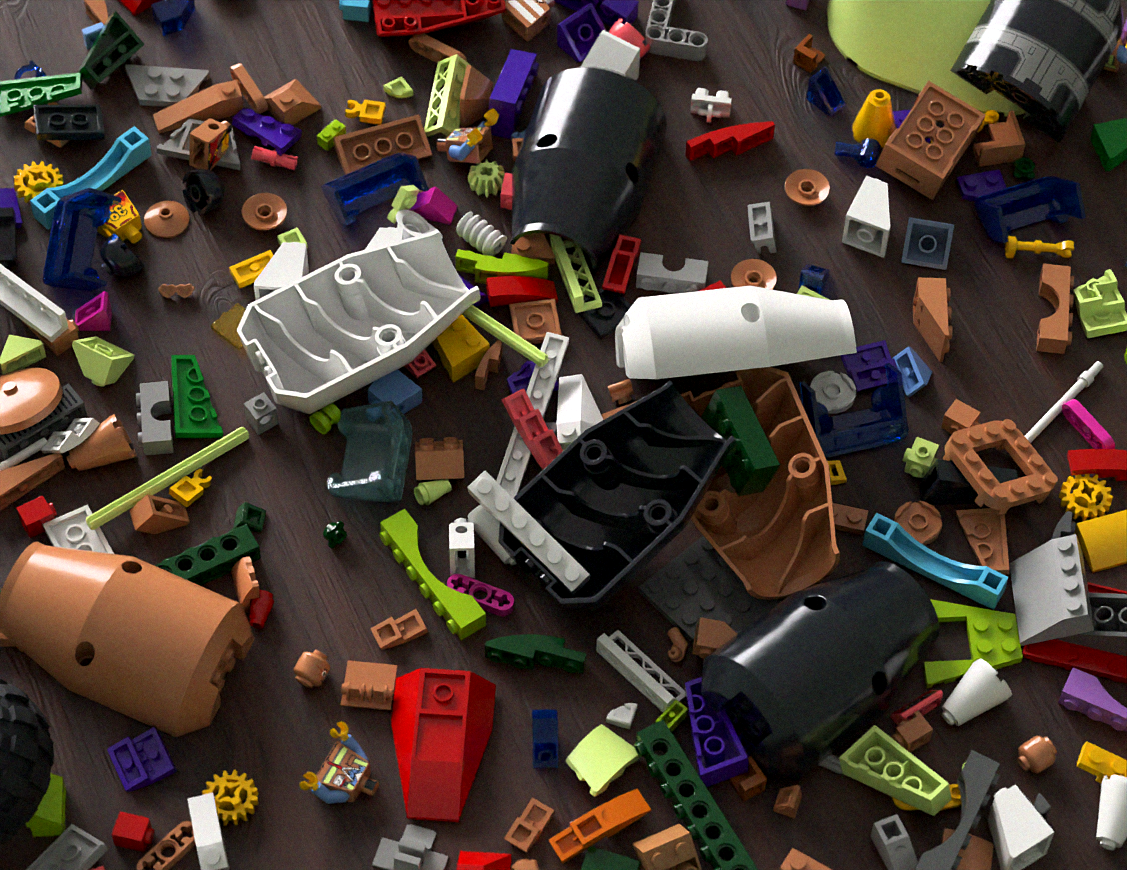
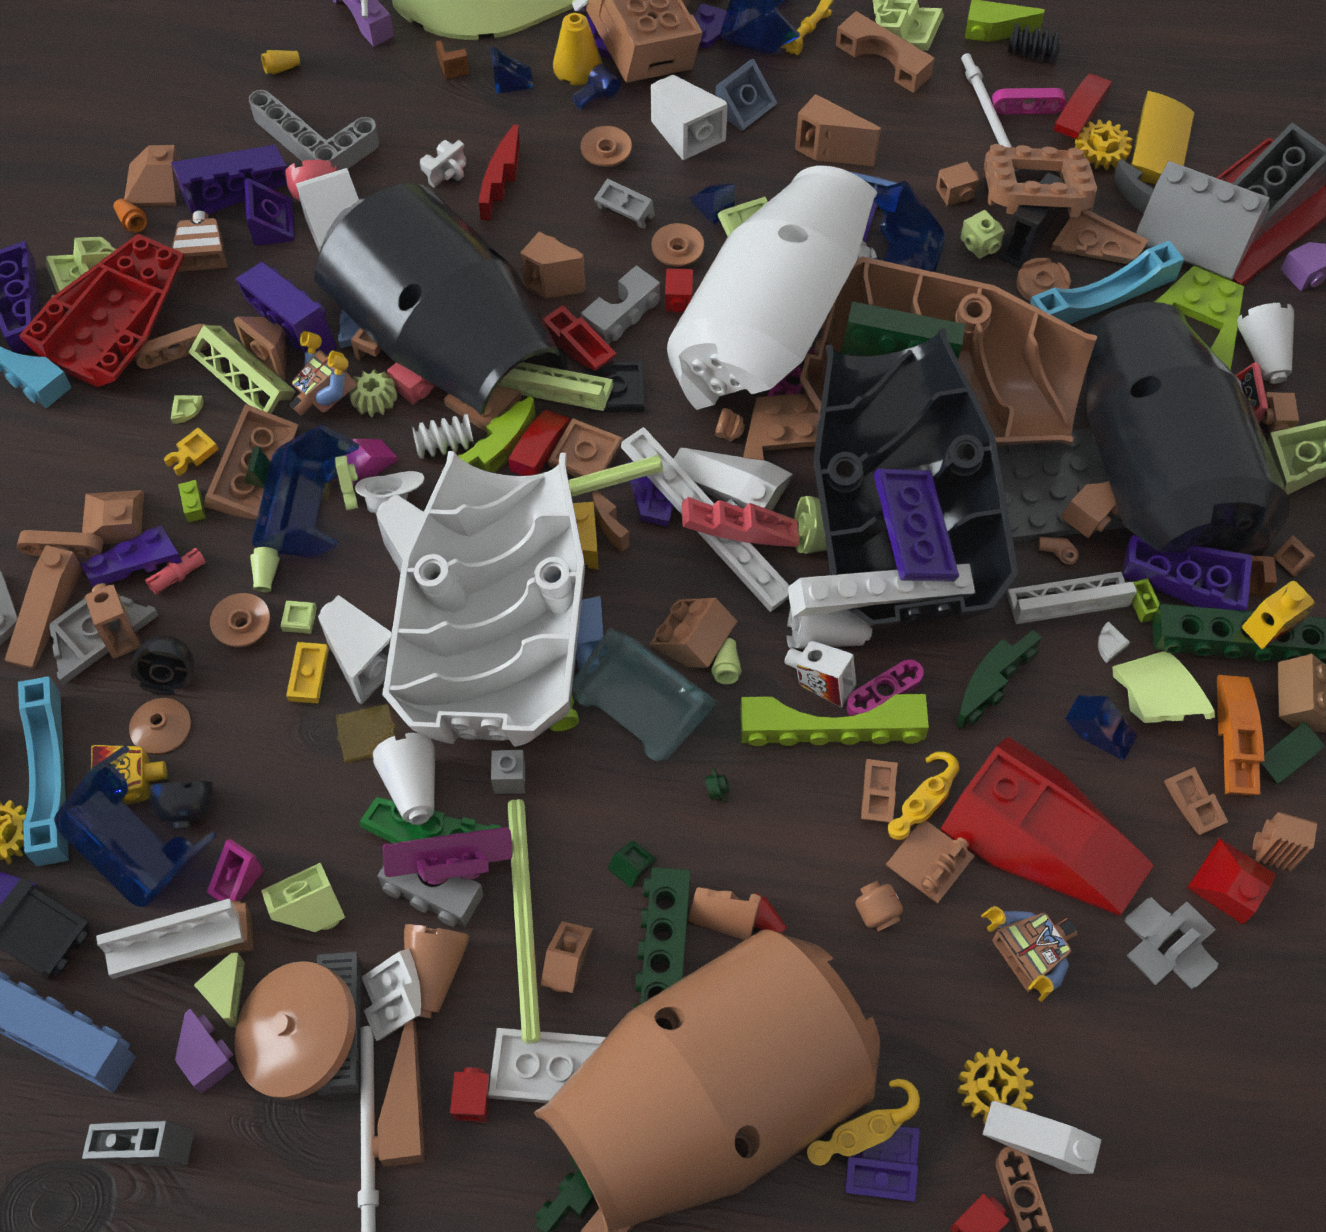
camera: 55 degrees left, 5 degrees up
(151, 735) = (866, 1129): none -> yellow piece
(176, 410) = (448, 855): none -> magenta bracket
(182, 290) = (265, 774): nougat piece -> none
(188, 489) = (551, 903): yellow plate -> none
(216, 360) = (408, 774): none -> white cone
(310, 201) = (264, 566): none -> yellowish green cone
(376, 150) = (257, 468): none -> dark green slope
(411, 658) = (926, 797): none -> yellow piece
(584, 519) = (916, 525): none -> dark purple tile
(665, 213) = (552, 267): none -> nougat slope
(704, 793) = (1287, 607): none -> yellow torso

